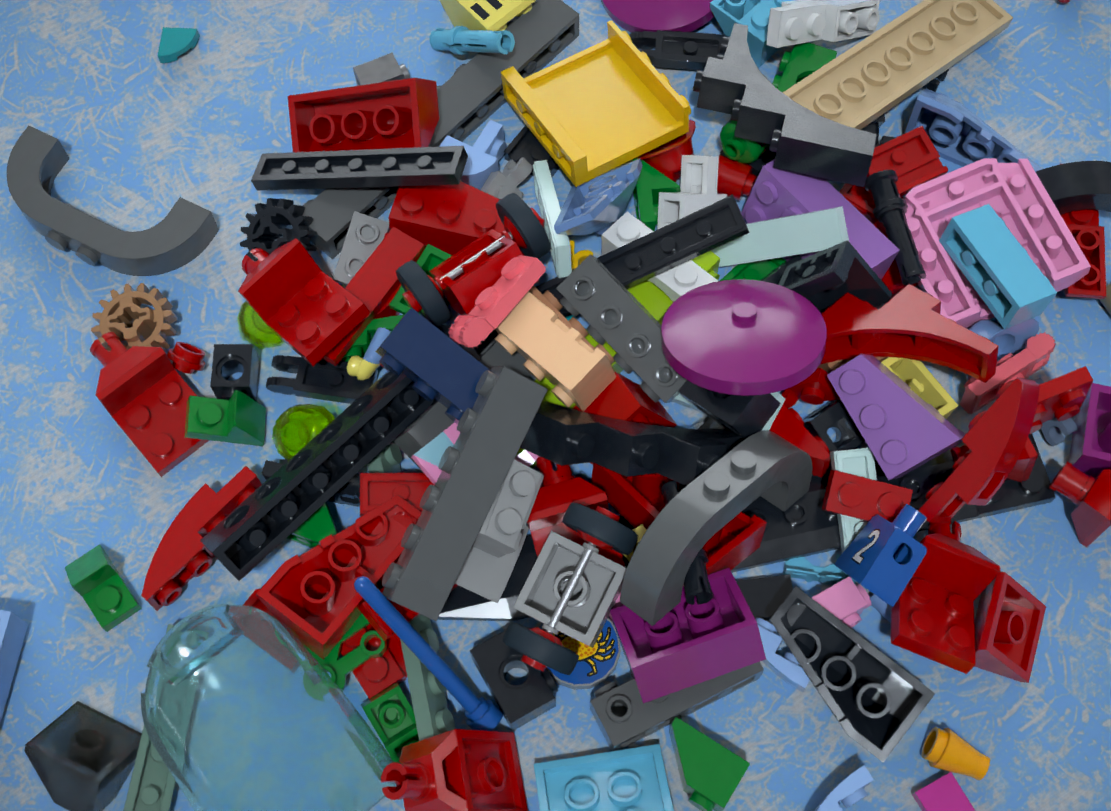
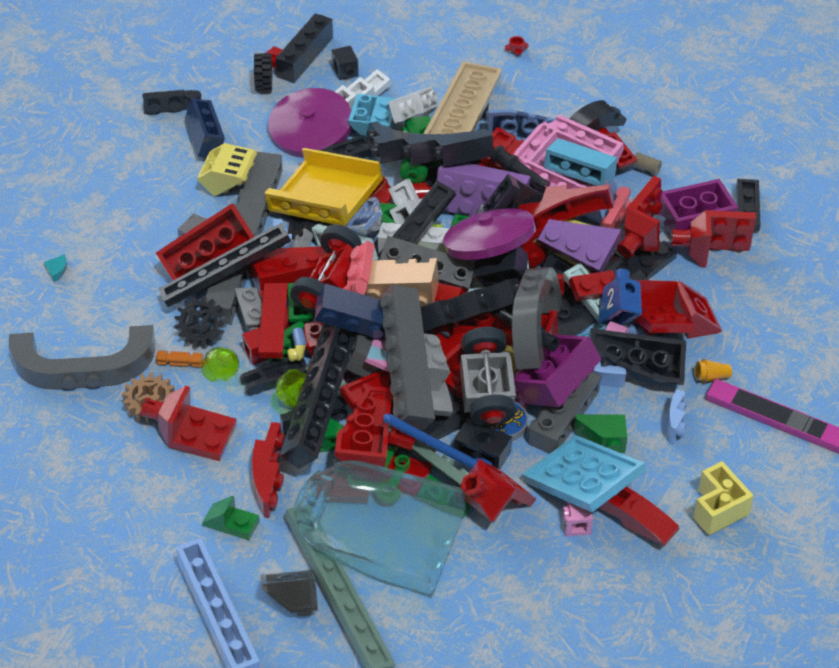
camera: 35 degrees left, 20 degrees down
(187, 357) = (196, 398): red plate -> none
(218, 277) = (179, 358): none -> orange axle
(230, 360) = (225, 392): black brick -> none
(230, 421) = (238, 413): green slope -> none
(299, 300) = (243, 336): red plate -> none
(462, 40) = (226, 193): medium azure pin -> none
(786, 237) = (471, 196): light aqua tile -> none
(995, 443) = (637, 224): red slope -> none

